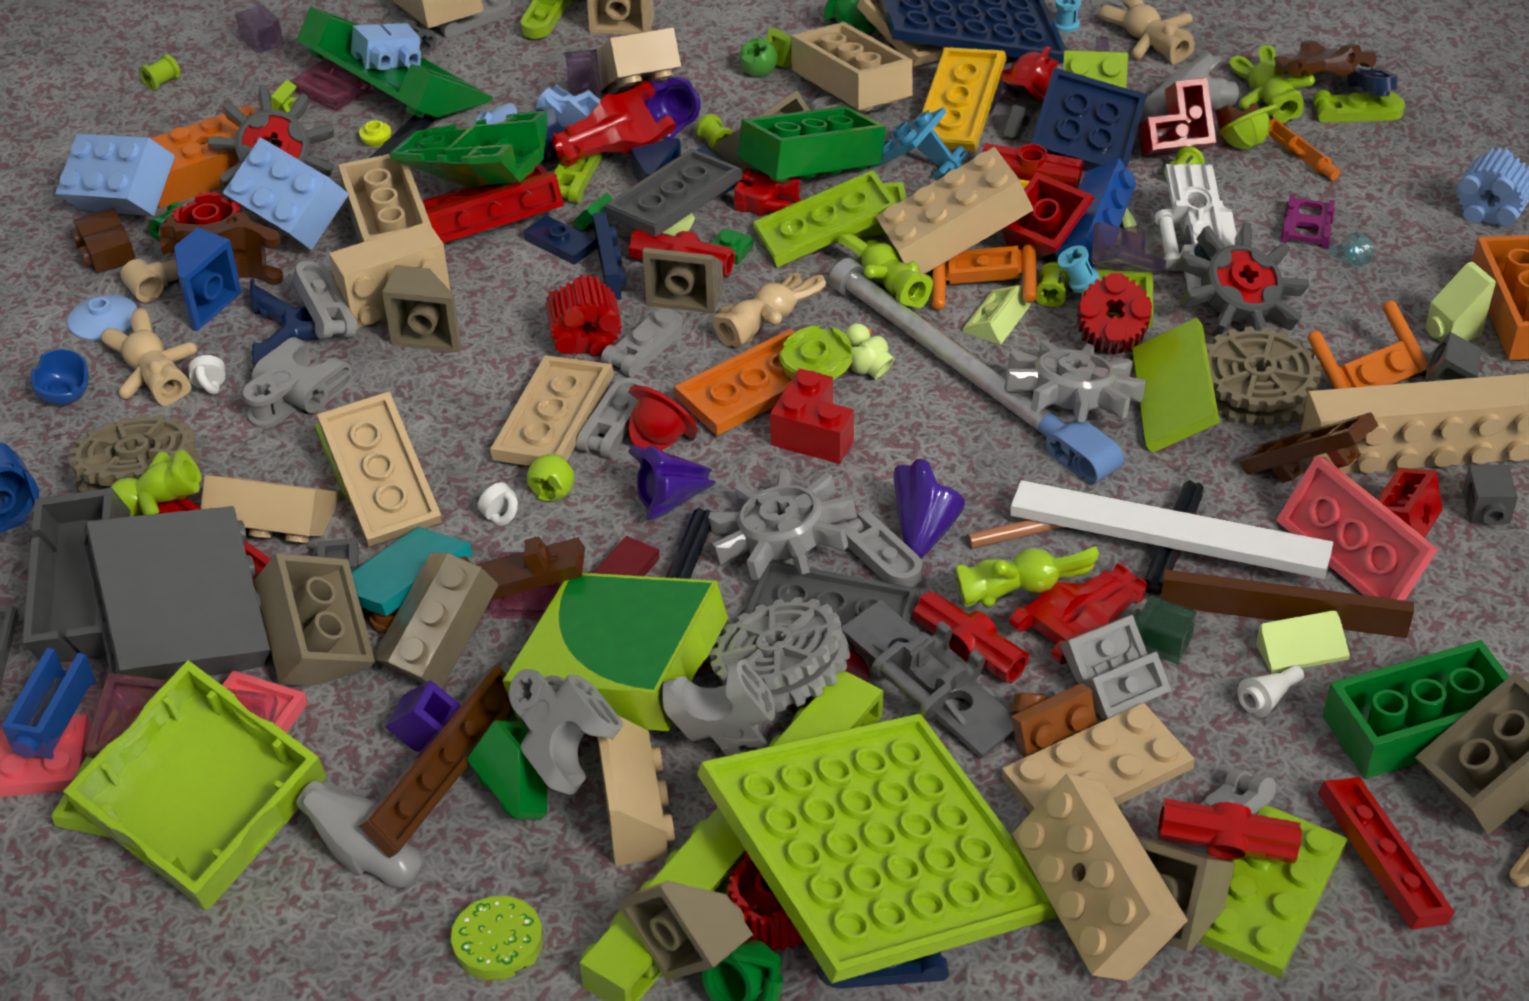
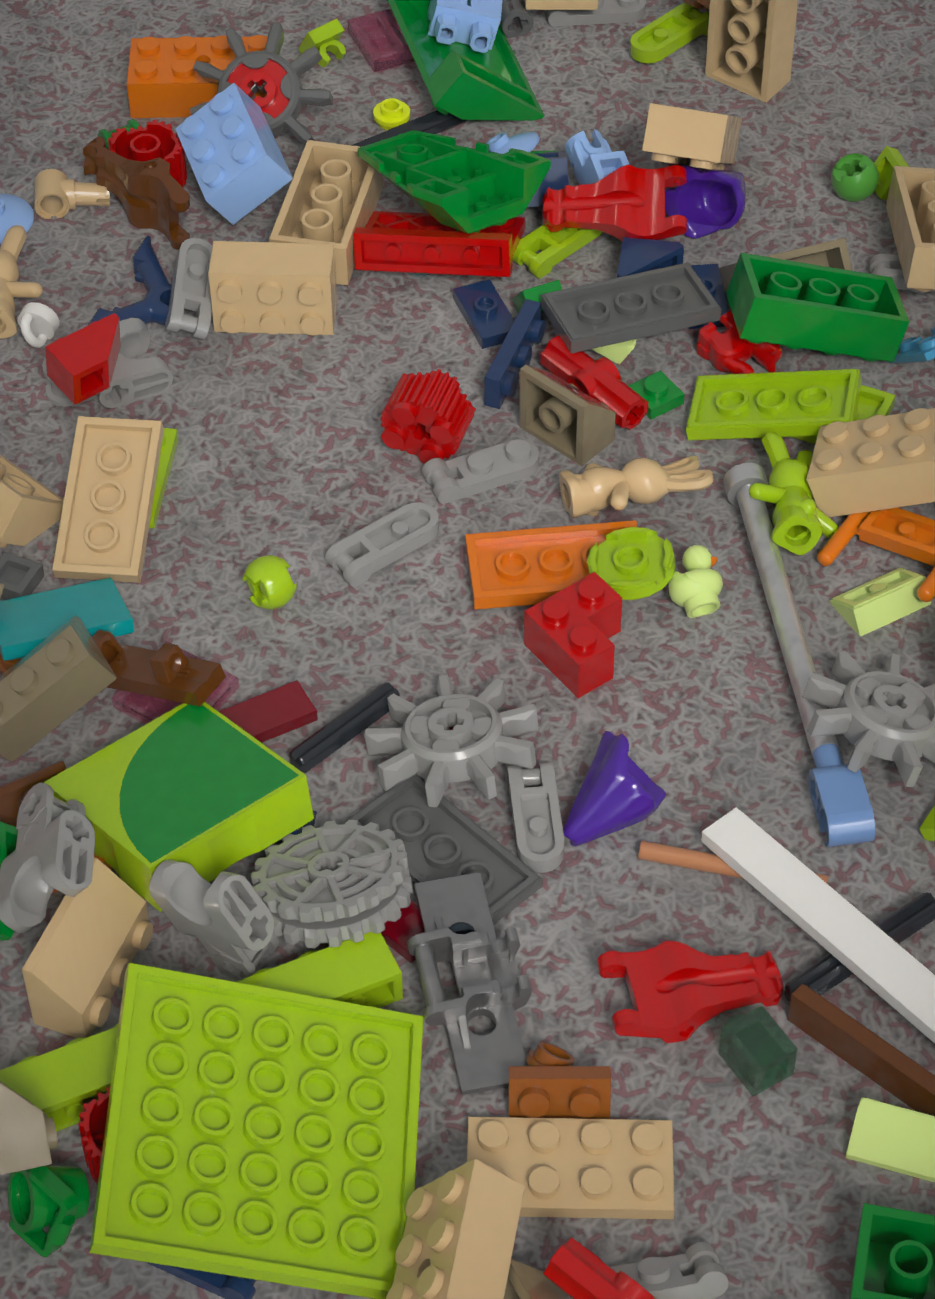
camera: 30 degrees right, 5 degrees up
(102, 240) = (46, 134): reddish brown brick -> none
(115, 174) = (92, 67): light blue brick -> none
(206, 275) = (97, 216): blue slope -> none
(283, 376) = (85, 359): none -> red slope
(420, 310) = (269, 338): dark tan slope -> none
(496, 501) = (199, 584): white tile -> none
(552, 410) = (328, 508): tan plate -> none
(583, 72) = (630, 131): clear purple panel -> none
(658, 419) = (421, 564): red helmet -> none
(667, 480) = (378, 640): dark purple hat -> none
(712, 130) = (733, 243): lime bush -> none
(971, 633) = (550, 958): red piece -> none
(1030, 569) = (653, 914): lime animal -> none
(1116, 666) = (668, 1066): light grey slope -> none
(1263, 692) = (812, 1175): white cone -> none

